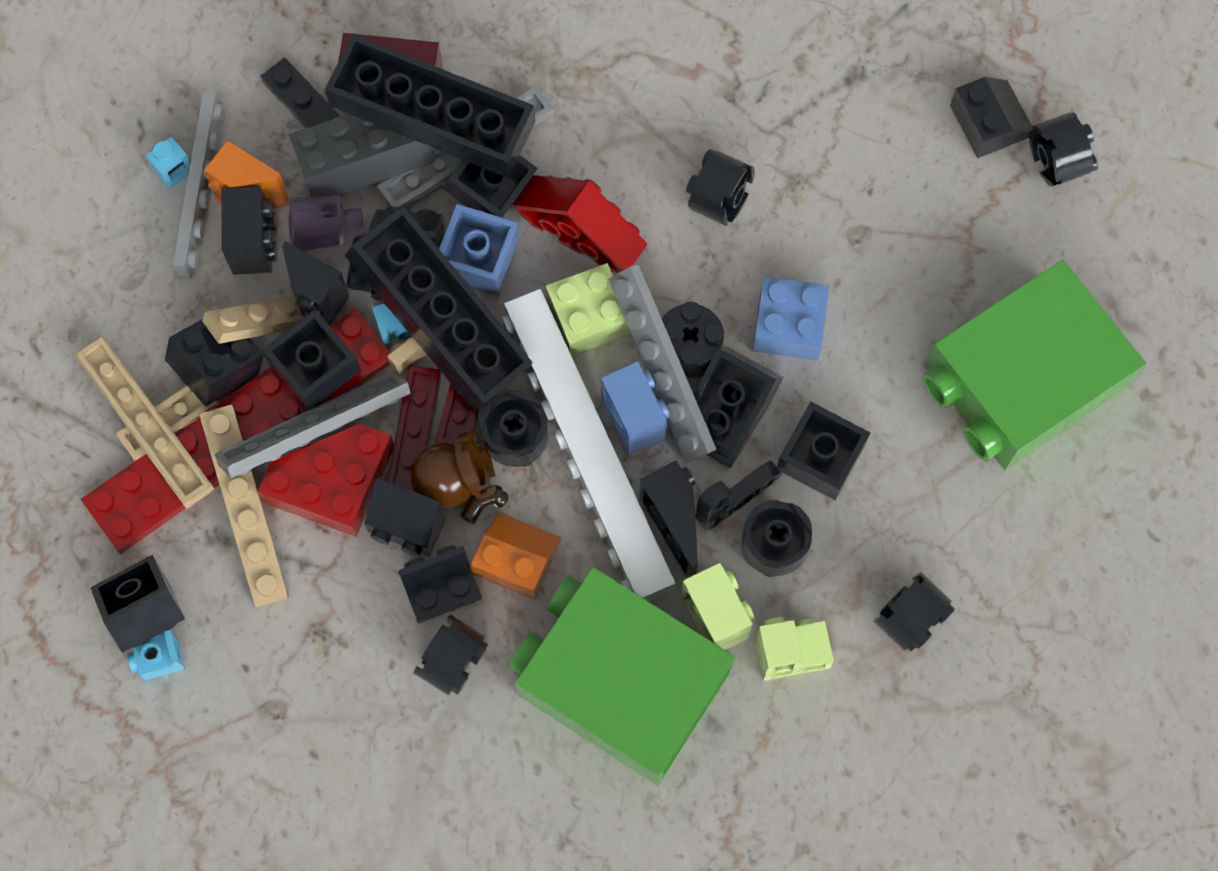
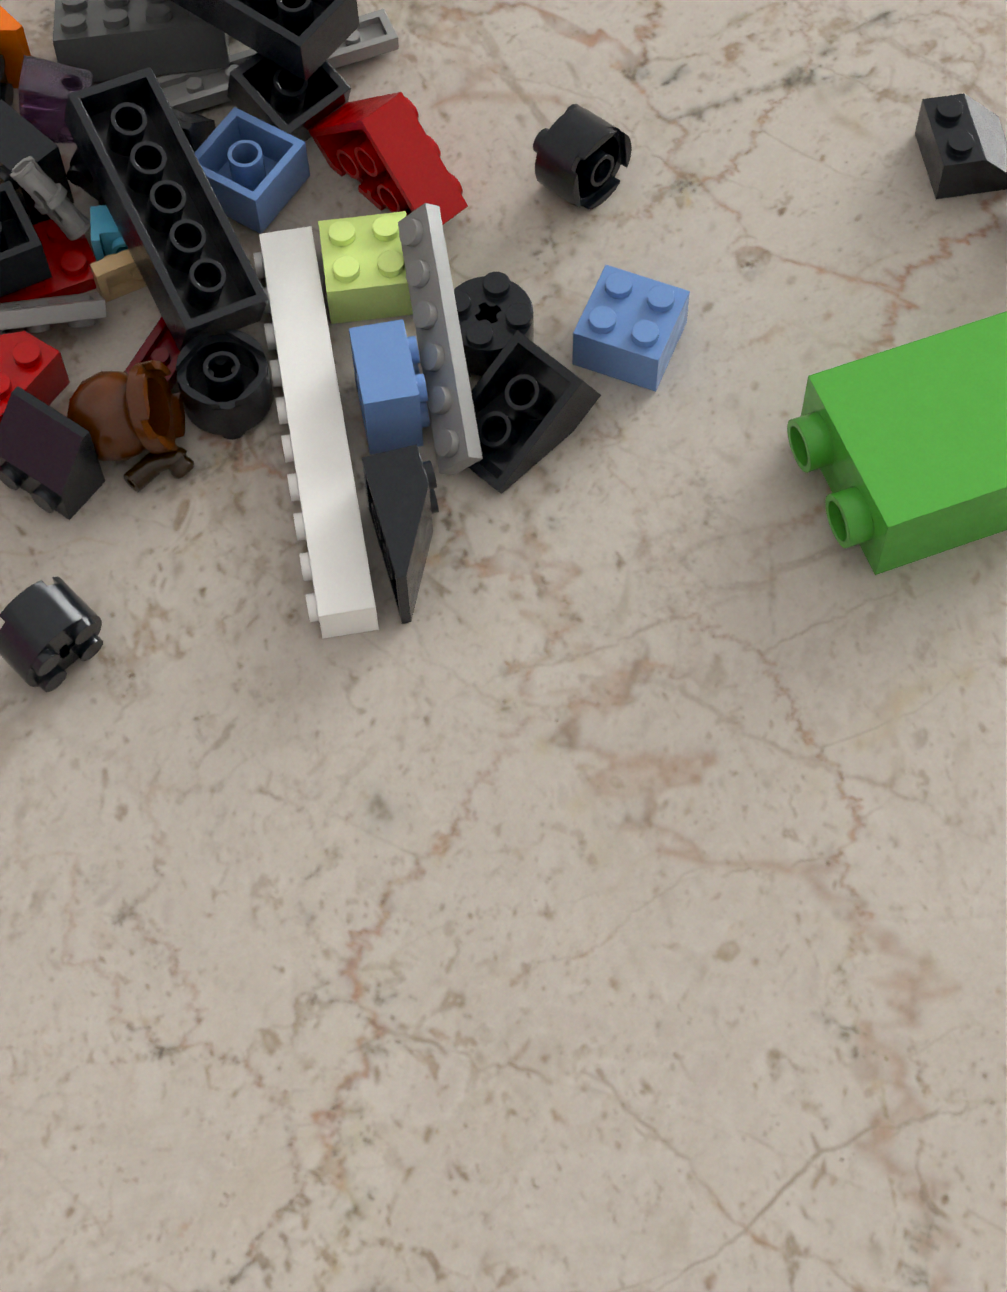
camera: 15 degrees right, 10 degrees down
(346, 313) = (50, 198): none -> light grey pin
(414, 423) = (110, 344): dark red tile -> none
(439, 583) = (65, 539): black bracket -> none
(515, 555) = (175, 537): orange slope -> none
(621, 673) = (268, 706): bright green brick -> none
(716, 606) = (423, 650): yellowish green brick -> none
(720, 502) = (464, 532): black beam -> none
(780, 520) = (532, 583): black brick -> none
(792, 647) = (511, 728): yellowish green brick -> none
(823, 450) = (626, 490): black brick -> none
(914, 612) = (694, 713): black brick -> none

